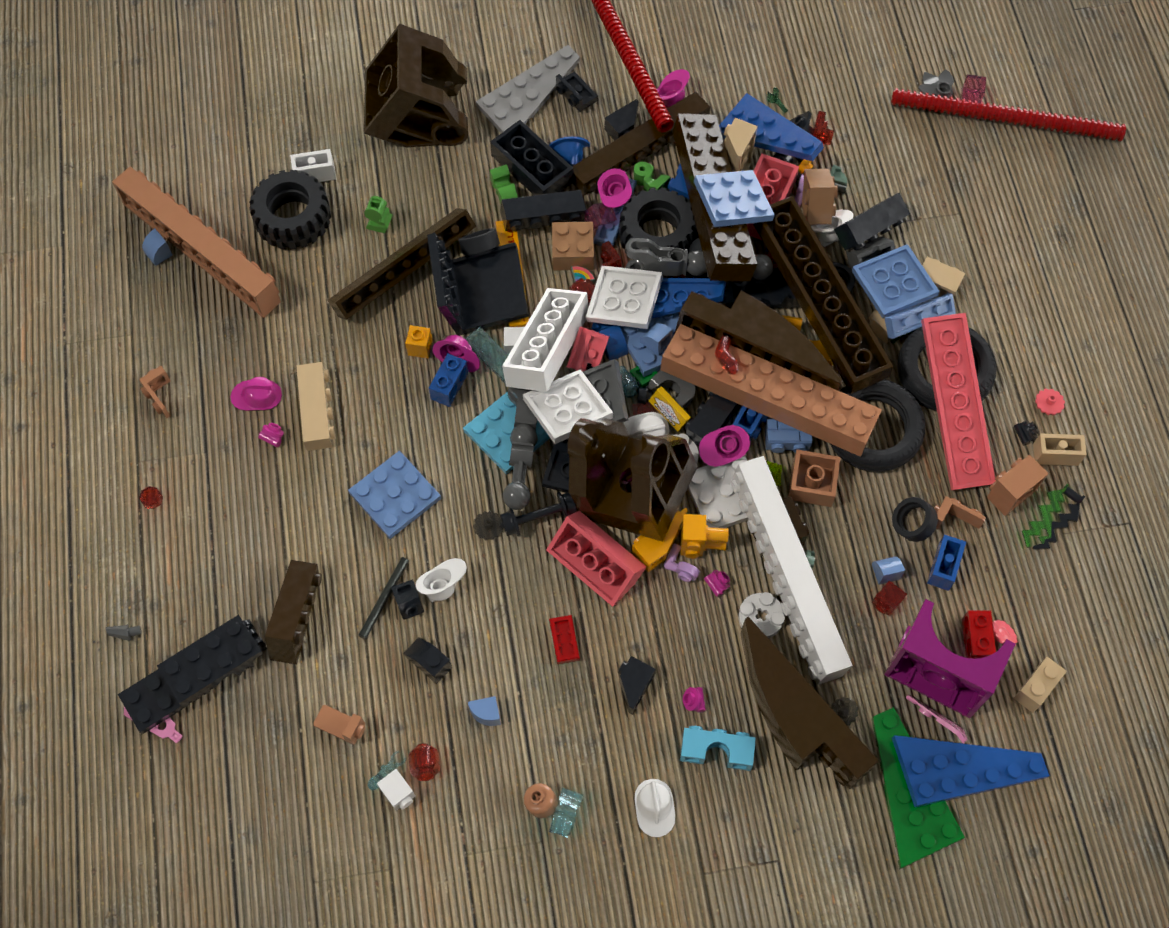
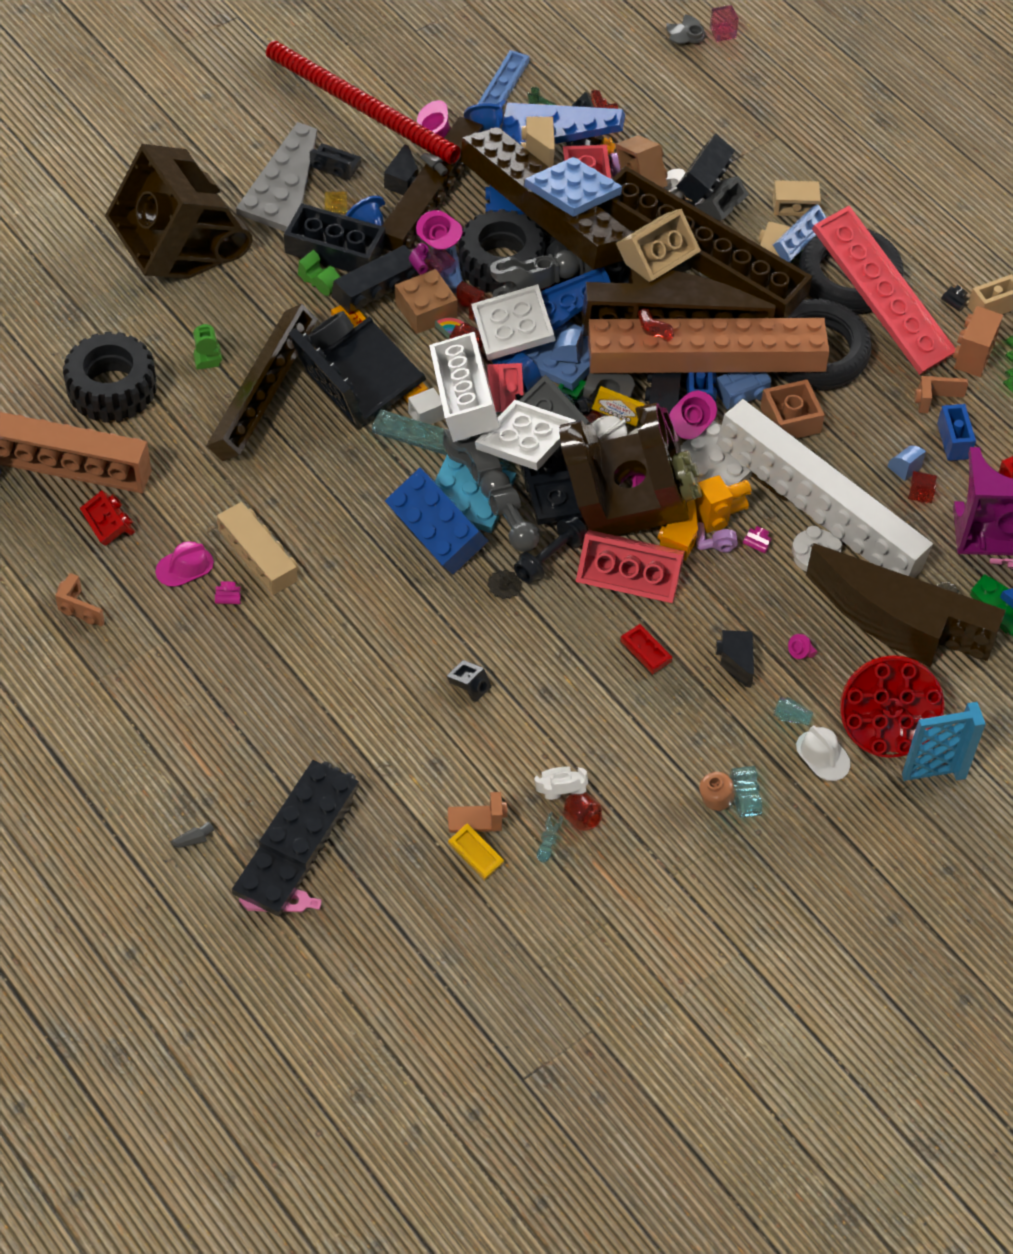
camera: 30 degrees left, 10 degrees down
(151, 497) = (138, 702): clear red tile -> none
(221, 328) = (106, 517): none -> red bracket
(292, 612) = (364, 738): dark brown wedge -> none
(315, 163) = (112, 319): white brick -> none
(321, 754) = (475, 851): none -> yellow tile
(382, 600) = (443, 691): pearl dark grey bar -> none
(394, 494) = (392, 595): medium blue plate -> none
(396, 790) = (571, 847): white brick -> none
(419, 341) = (327, 446): light orange brick -> none
(427, 736) = (561, 781): none -> white plate
(428, 659) = (526, 722): black slope -> none
(441, 580) = (494, 645): white piece -> none
(448, 380) = (380, 468): blue brick -> none
(458, 347) = (375, 442): dark pink piece -> none
(460, 447) = (436, 521): none -> blue brick
(485, 711) = (612, 742): medium blue brick -> none
(552, 129) = (336, 202): none -> clear yellow tile
(582, 206) = (418, 256): none -> magenta arm
(644, 175) = (455, 208): bright green leg -> none
(648, 126) = (434, 163): none -> dark grey bar
(649, 756) = (791, 711): none -> clear light blue cone
(672, 506) = (686, 473): none -> olive plate
(719, 101) = (486, 113): none -> blue helmet
(729, 799) = (886, 701): none -> red bracket
(737, 747) = (829, 679): medium azure arch -> none
(747, 863) = (963, 745): none -> dark azure fence
(755, 73) = (505, 78): none -> medium blue tile
(772, 284) = (659, 245): none -> tan slope
(895, 281) = (761, 211): medium blue plate -> none
(902, 510) = (891, 399): black tyre -> none
(1009, 115) = (767, 33): red piece -> none
(1050, 401) = (960, 265): coral piece -> none

